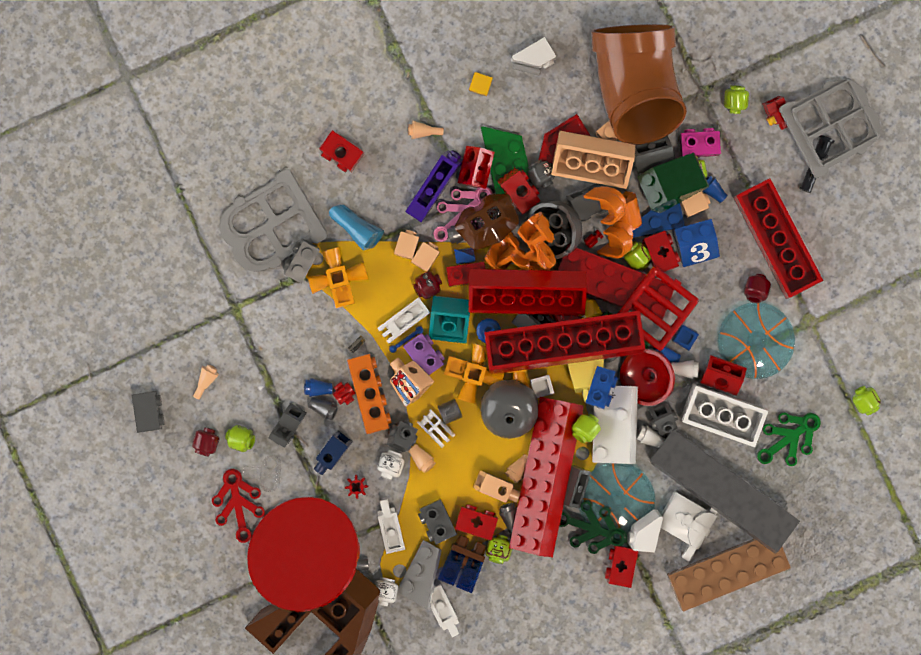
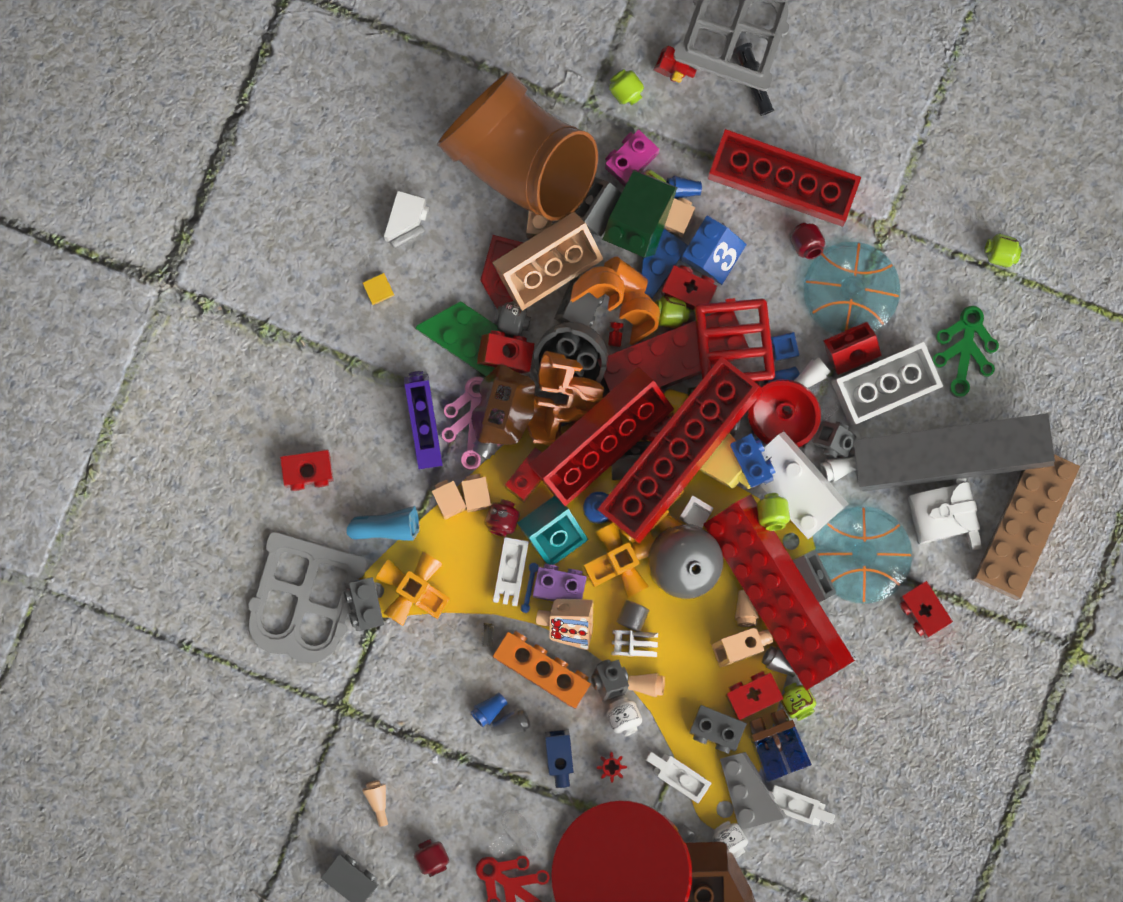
camera: 45 degrees left, 5 degrees down
(240, 438) = (461, 824): lime head -> none
(287, 425) = (494, 769): dark grey brick -> none
(344, 393) = (518, 691): red gear -> none
(419, 130) = (360, 383): light nougat cone -> none
(464, 256) = (511, 460): blue slope -> none
(476, 167) = (446, 368): red brick -> none
(594, 528) = (868, 598): dark green plant -> none
(645, 532) = (917, 558): white slope -> none

